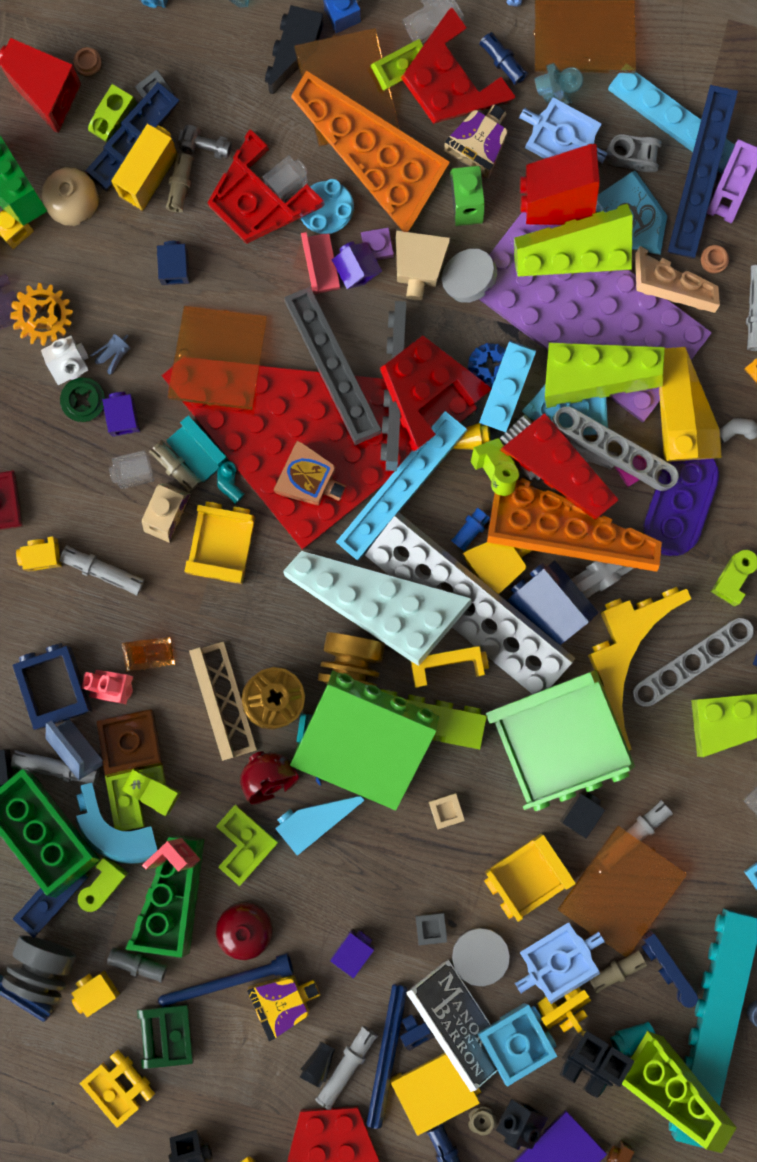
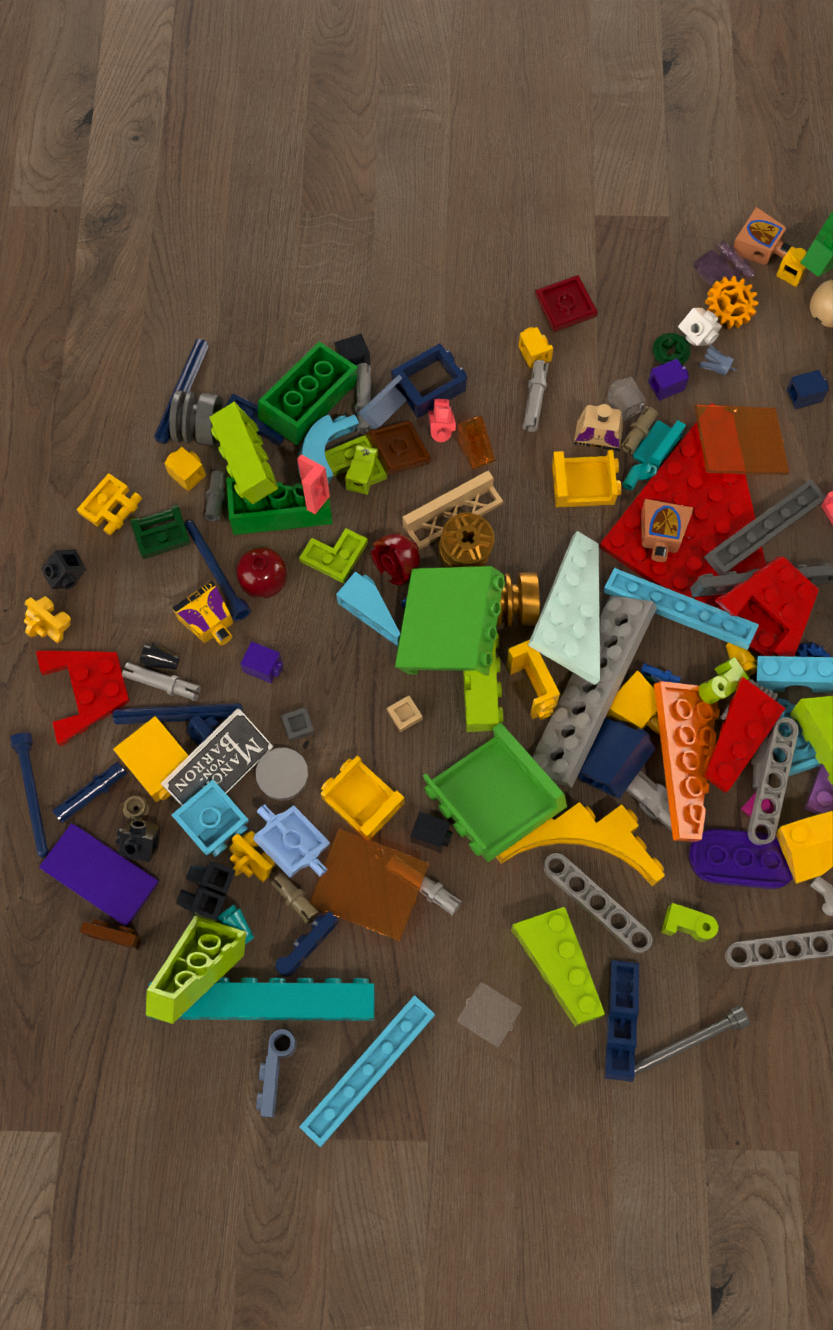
camera: 75 degrees right, 15 degrees down
(102, 888) = (280, 457): lime leg -> none
(109, 925) = (243, 453): none -> lime wedge

